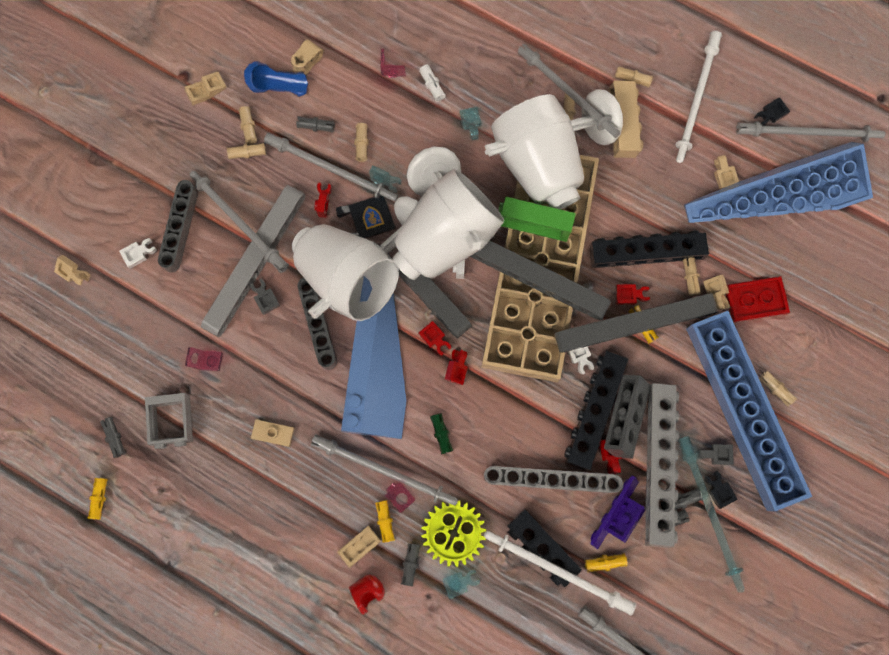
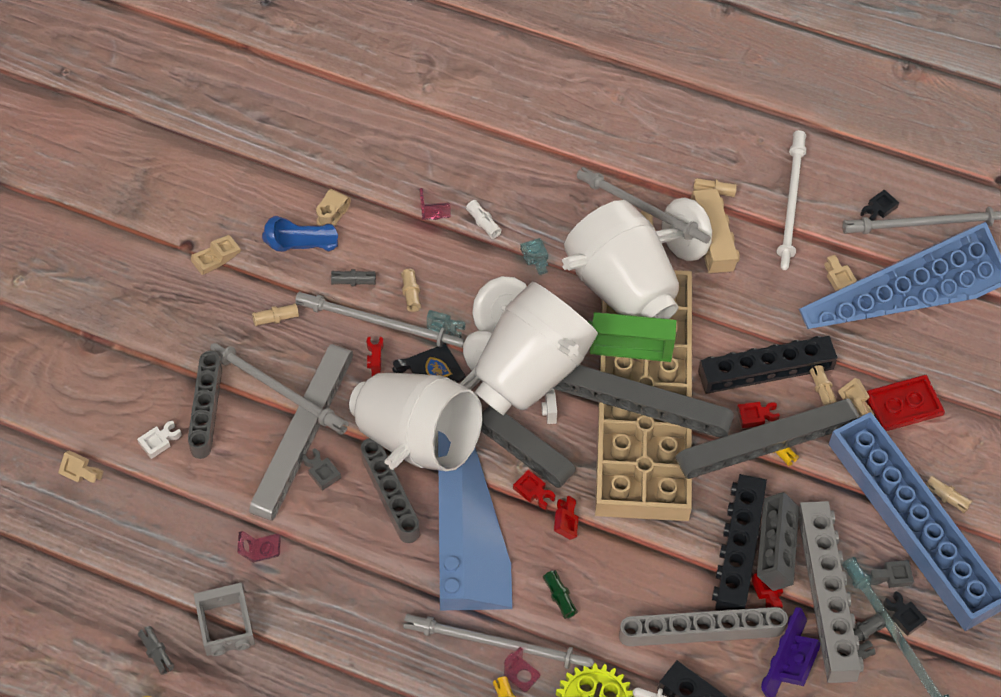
camera: 10 degrees left, 20 degrees down
(247, 125) = (272, 287): tan pin -> none
(272, 433) = (353, 620): tan plate -> none
(580, 355) = (709, 485): white plate -> none

